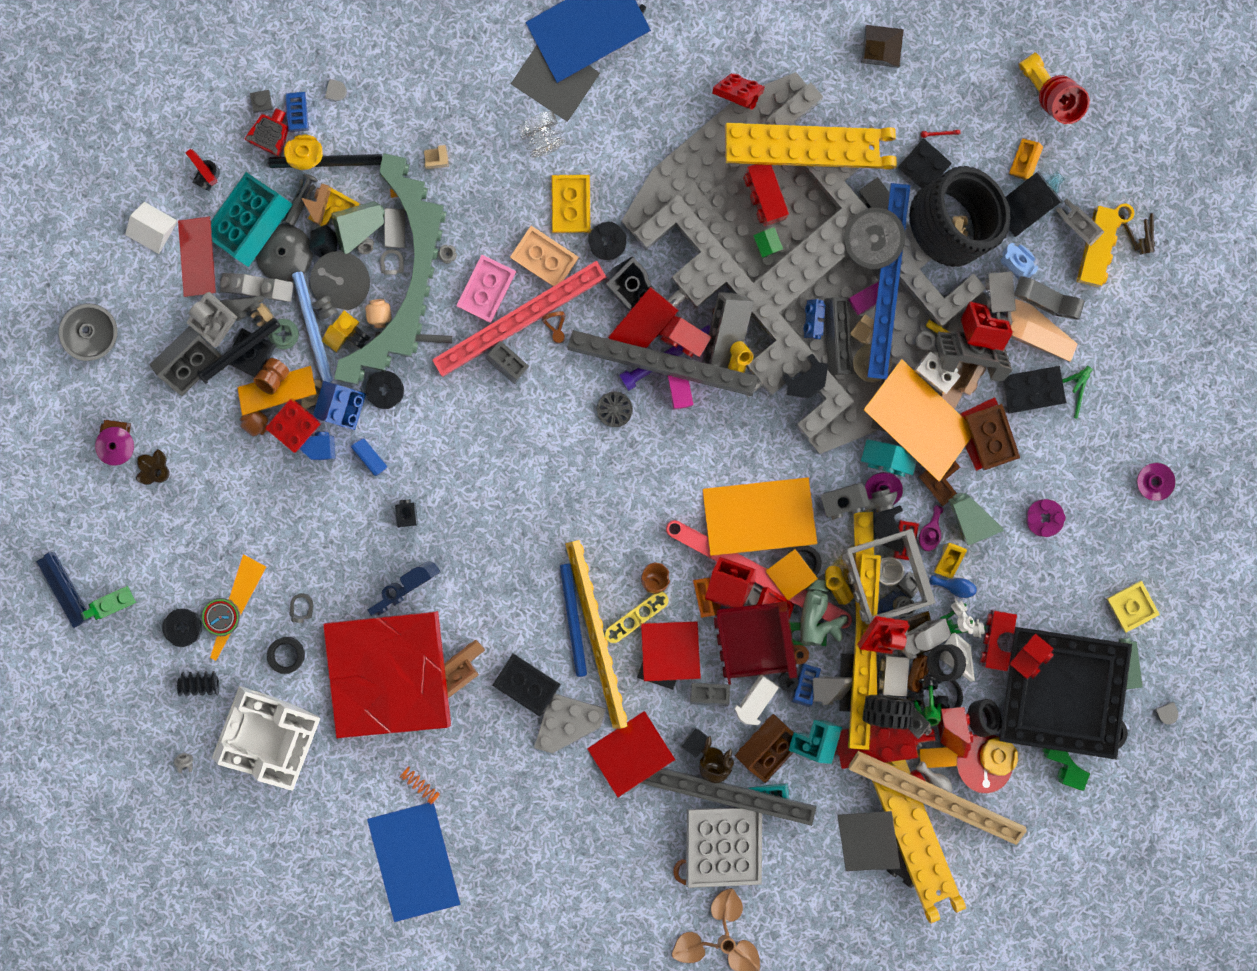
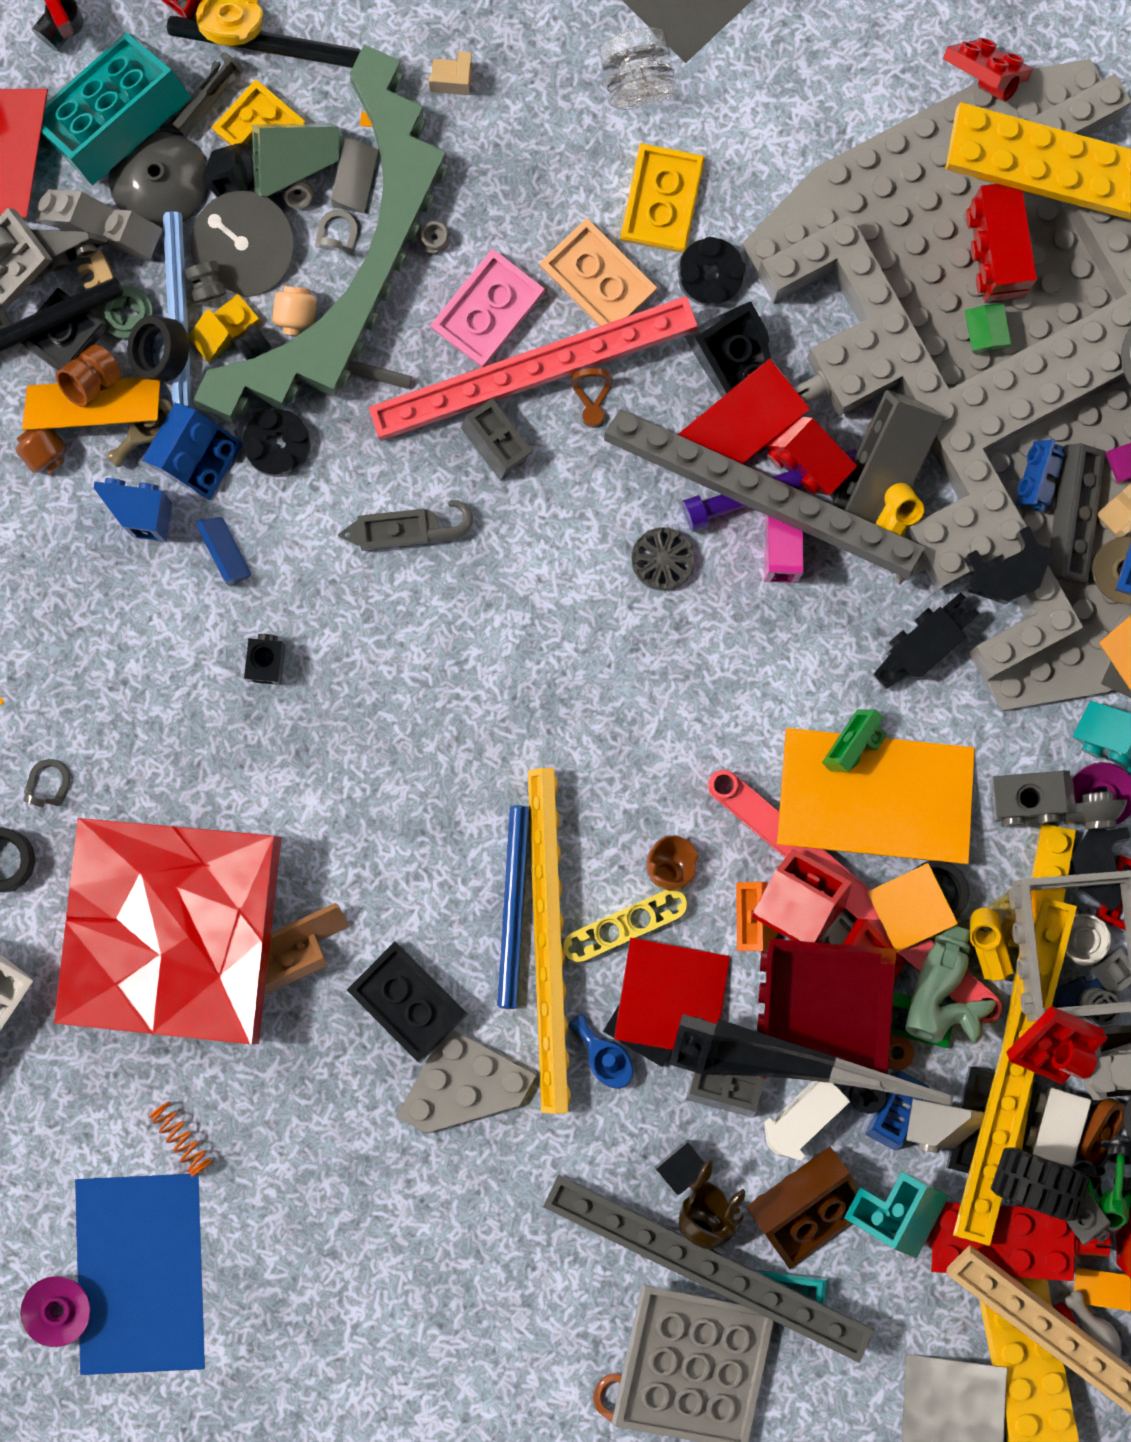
camera: 10 degrees right, 5 degrees down
(293, 425) = (103, 461): red bracket -> none
(317, 352) = (175, 349): none -> black tyre
(318, 208) = (233, 110): medium nougat slope -> none
(372, 901) = (38, 1315): none -> magenta dish
(410, 581) = (247, 774): dark blue plate -> none
(468, 423) = (405, 528): none -> dark grey plate
(631, 754) = (564, 1165): red piece -> none
(642, 692) = (606, 1059): none -> blue piece
(712, 674) = (745, 1052): none -> black plate
(744, 483) = (860, 732): none -> green hinge
(770, 426) = (924, 646): none -> black hinge

